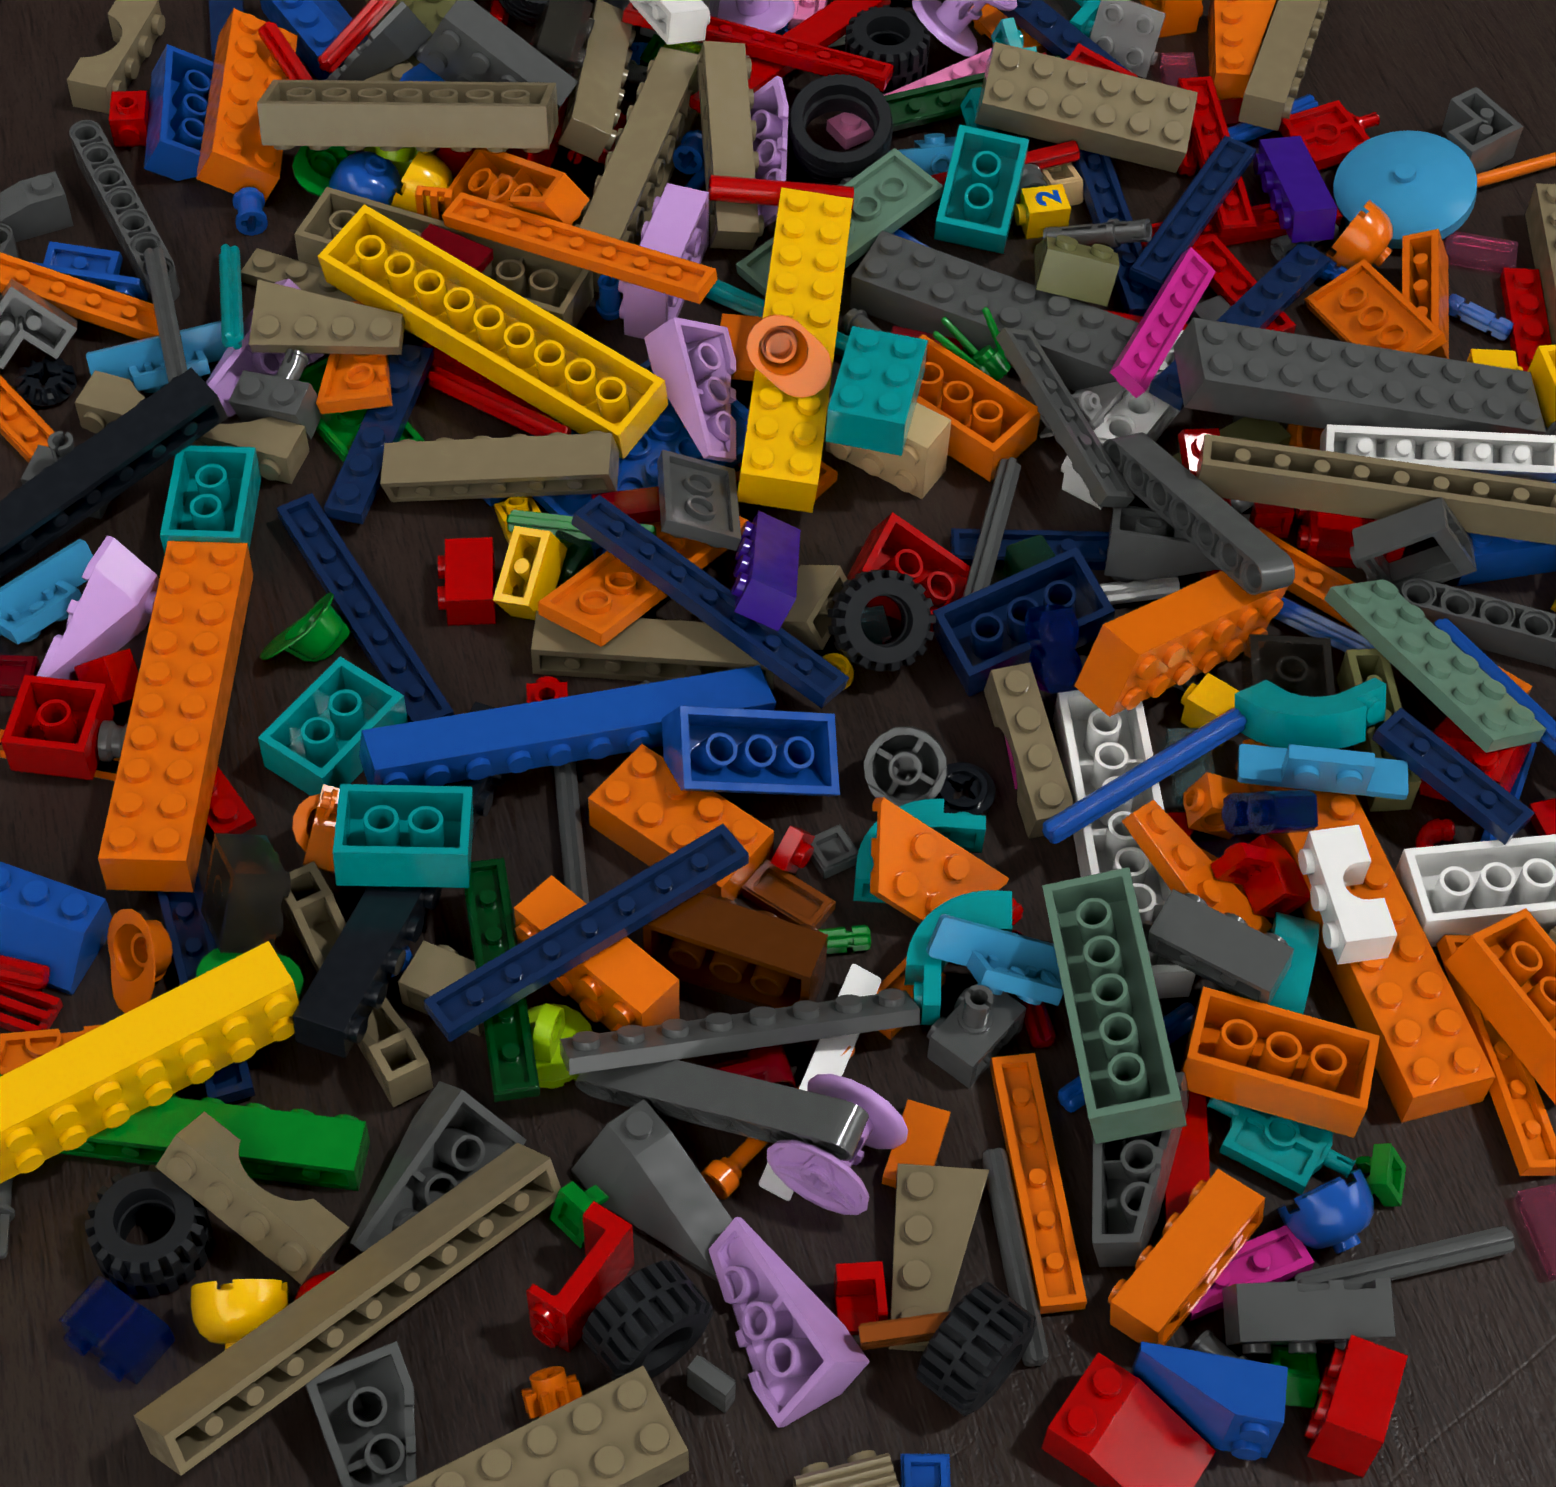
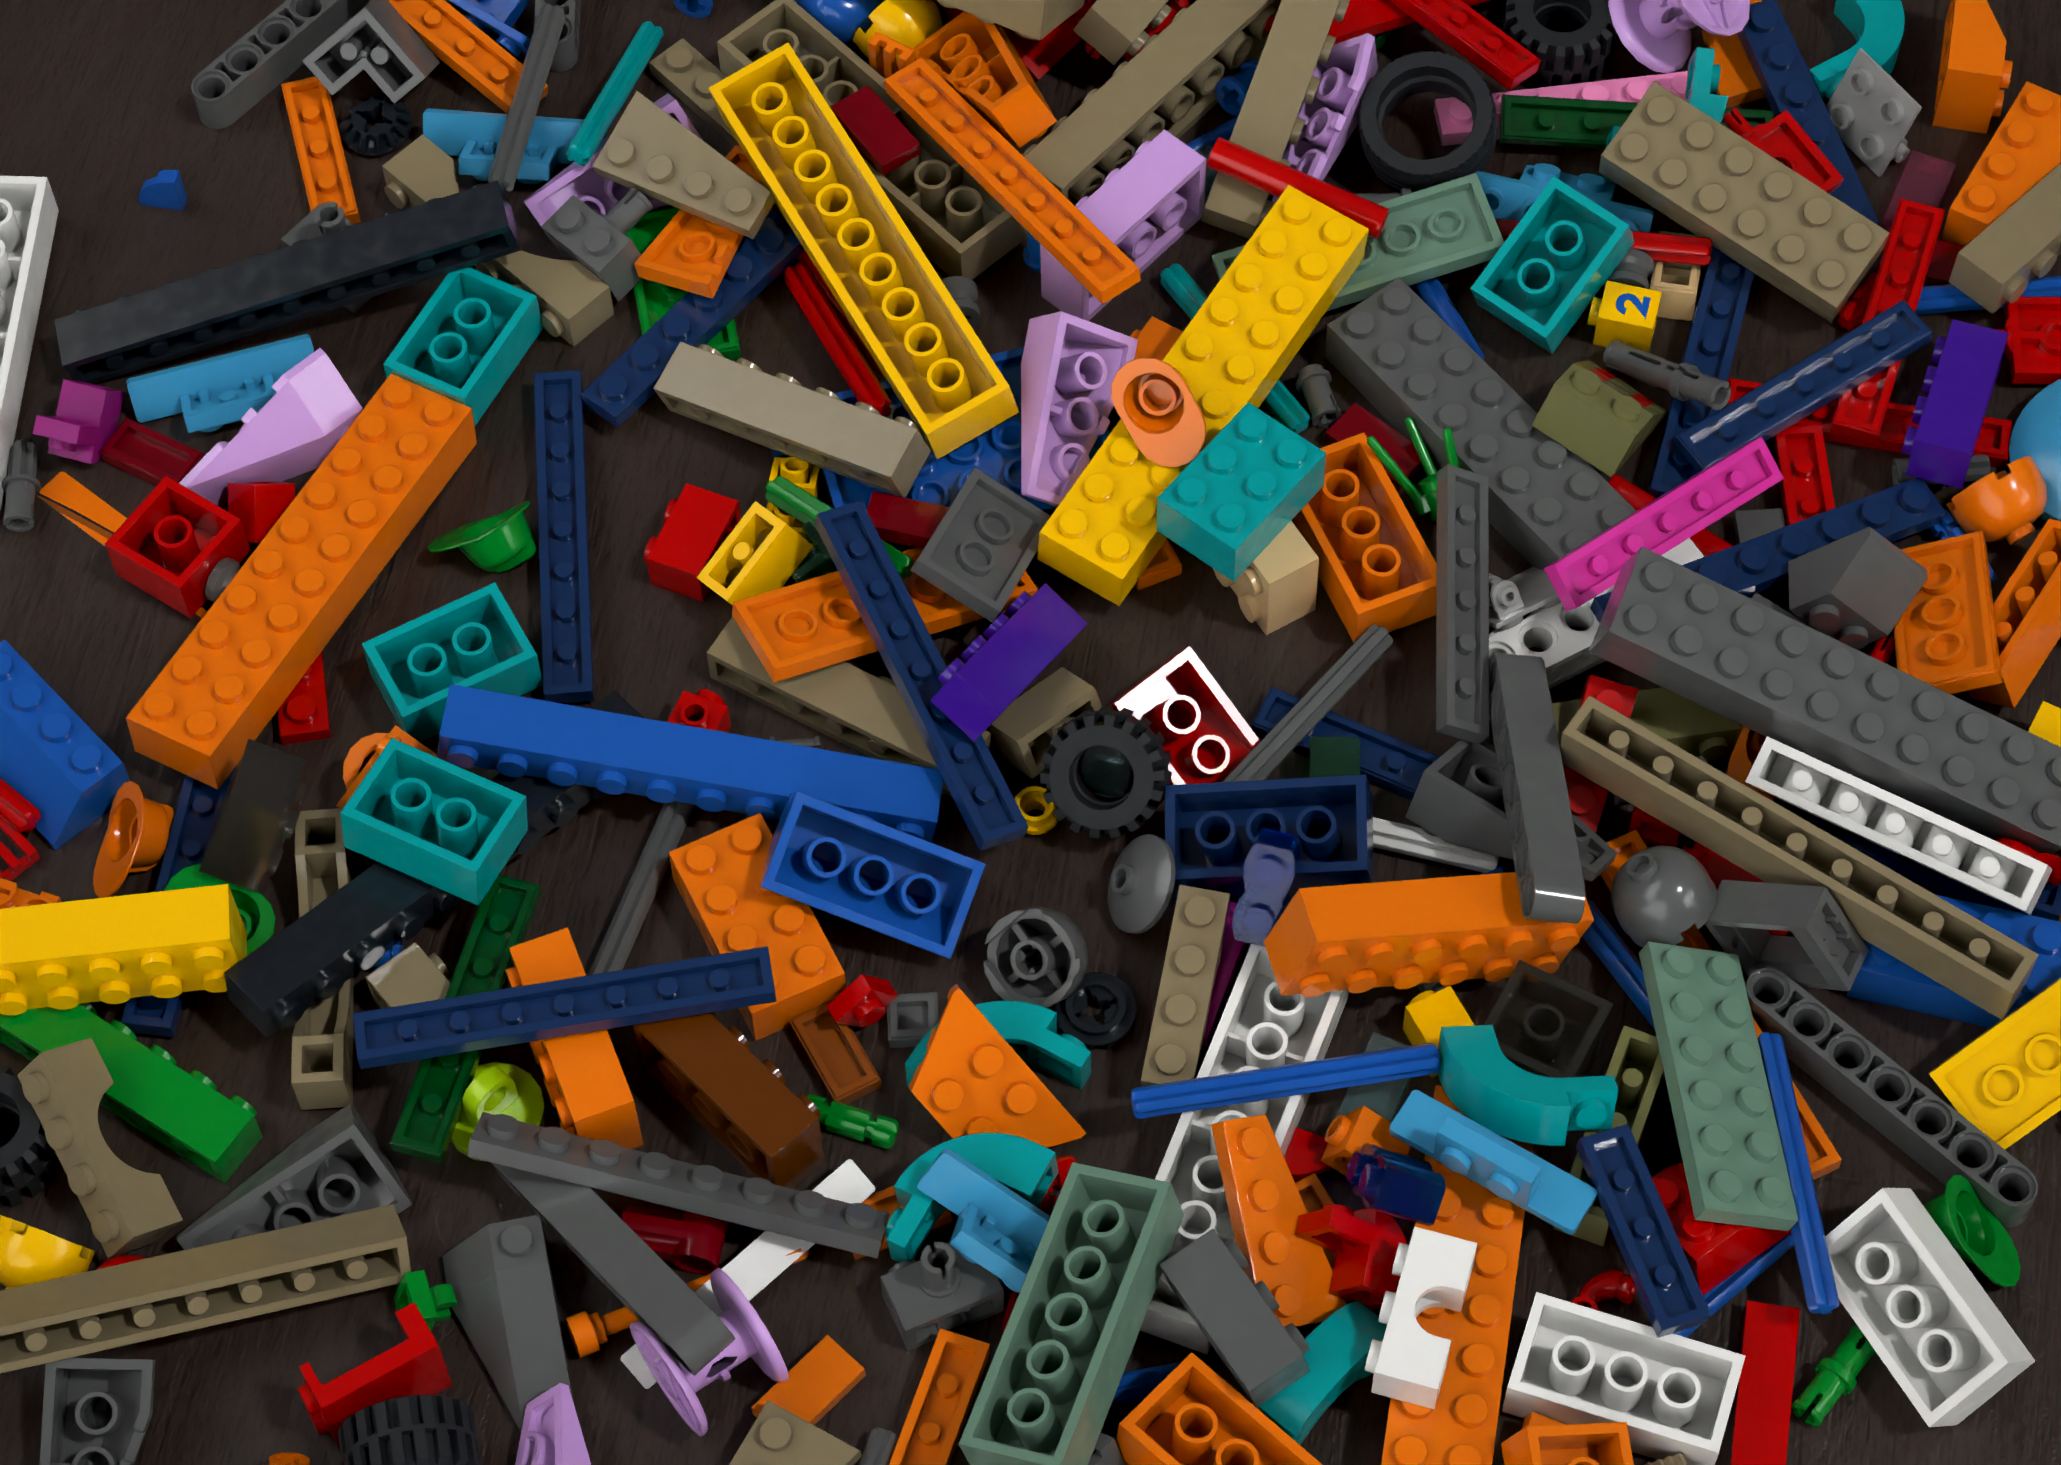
camera: 30 degrees right, 5 degrees up
(959, 692) = (1141, 884): none -> dark grey dish
(1312, 308) = (1854, 587): none -> dark grey slope
(1321, 555) = (1662, 895): none -> dark grey cylinder

